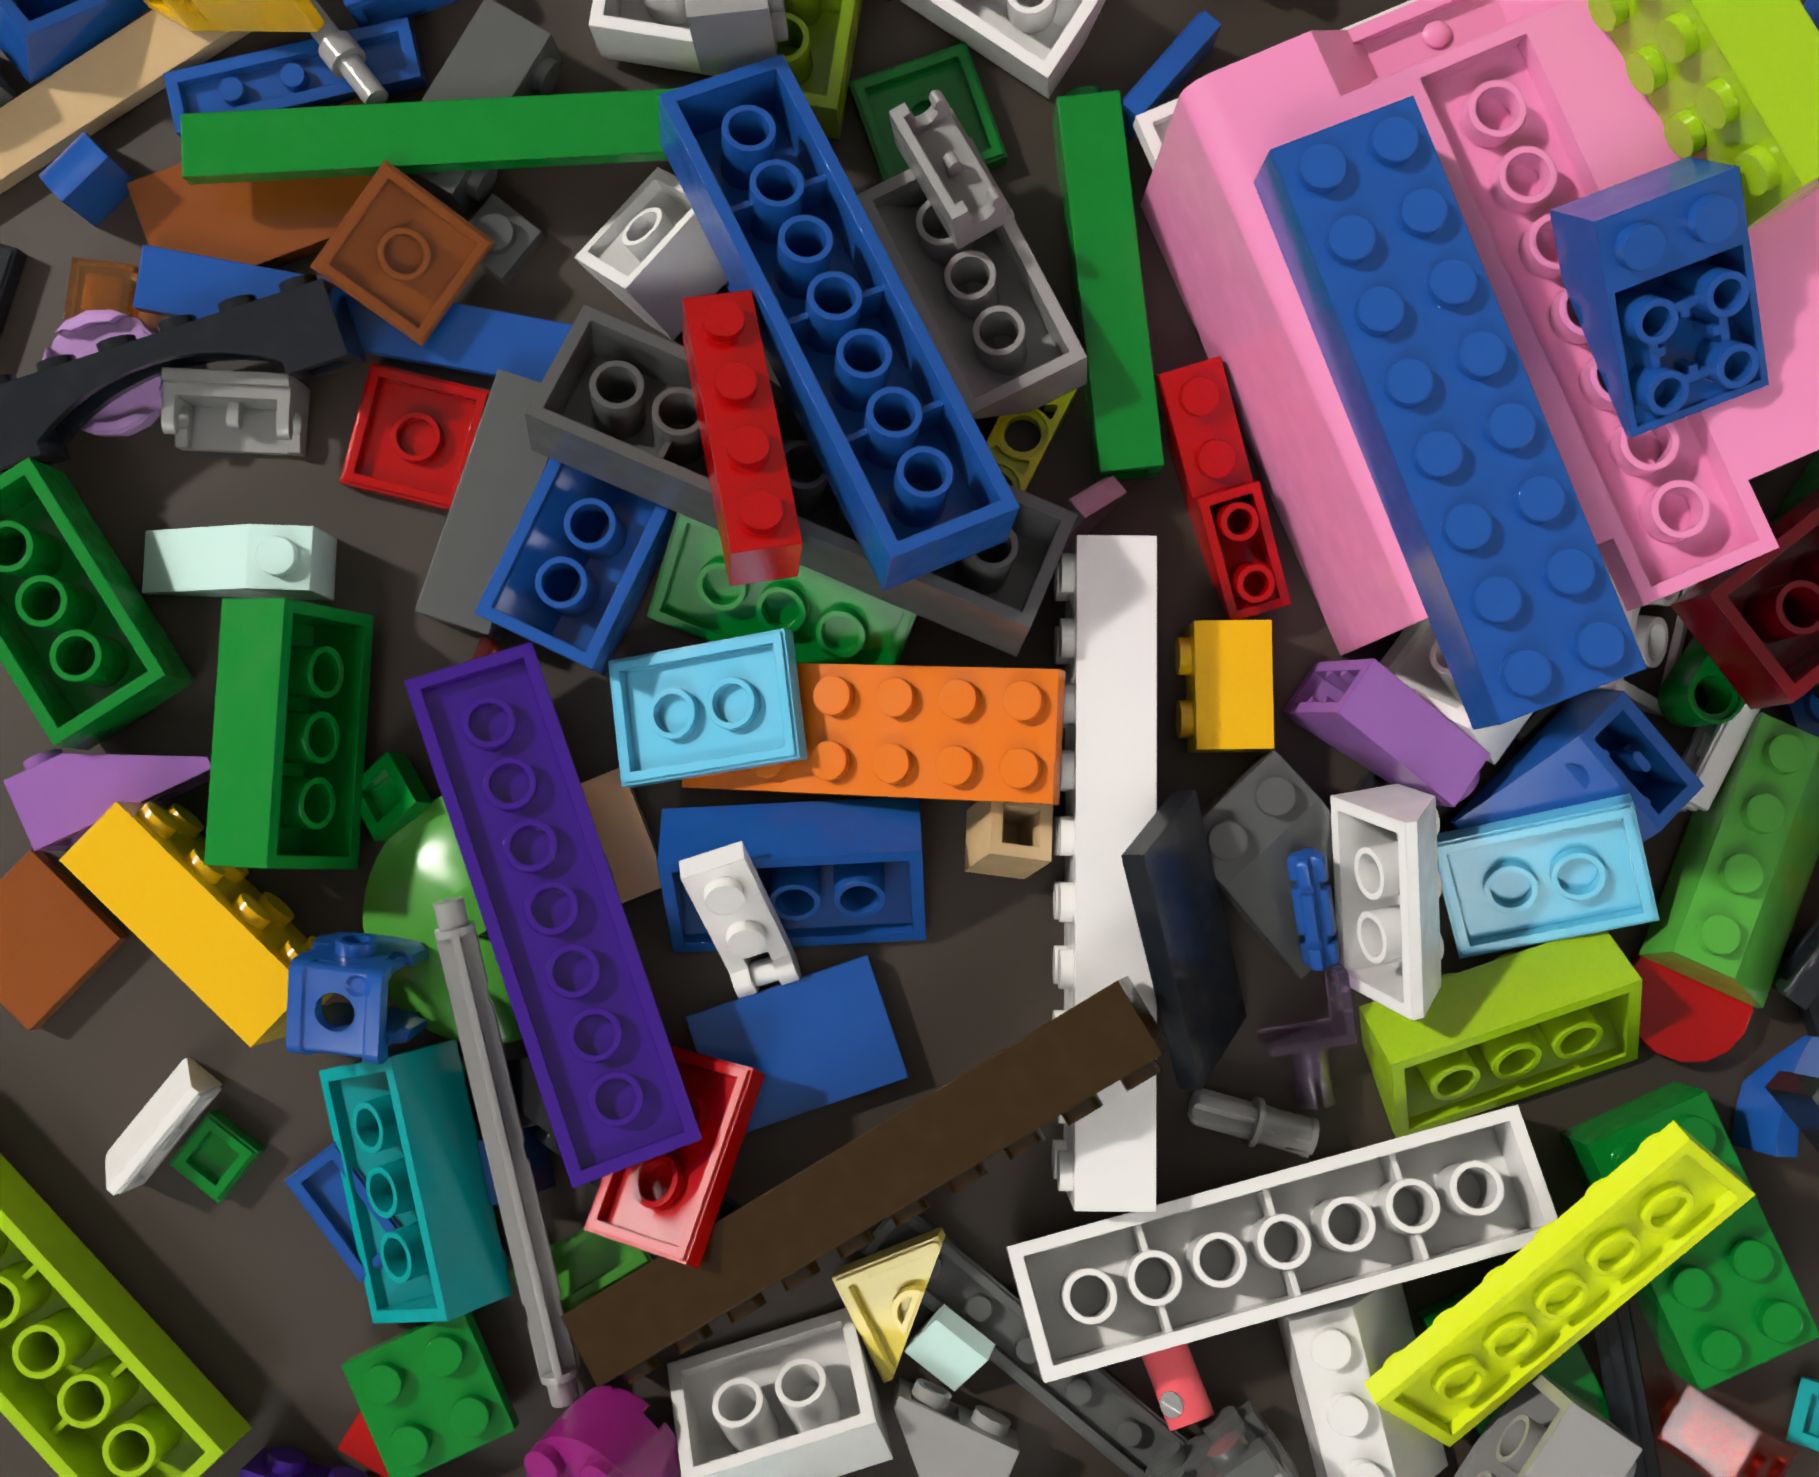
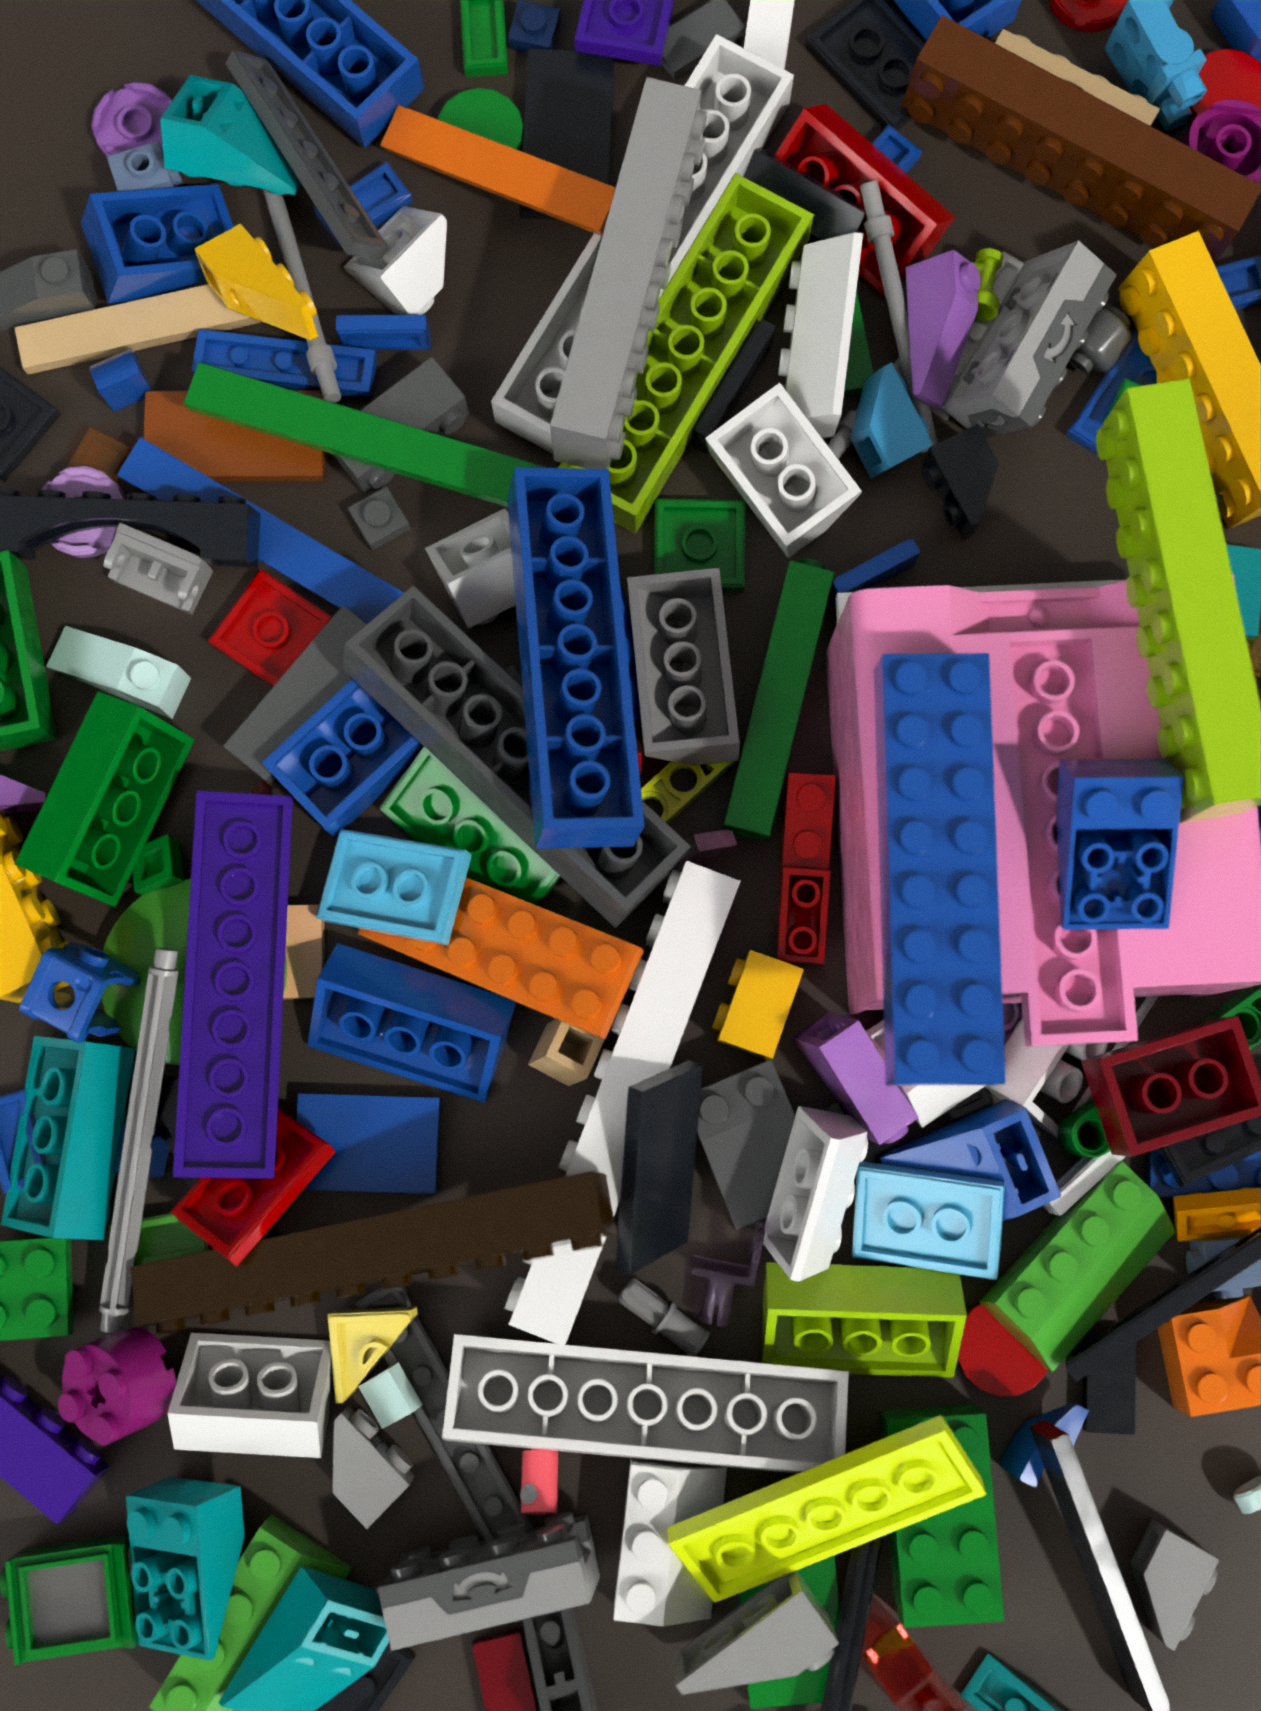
camera: 20 degrees right, 5 degrees down
(402, 253) = (308, 506): dark orange tile -> none
(739, 918) = (360, 1037): white plate -> none
(741, 438) = (479, 713): red brick -> none
(949, 170) = (695, 585): light grey hinge -> none
(1313, 908) = (758, 1181): blue axle -> none

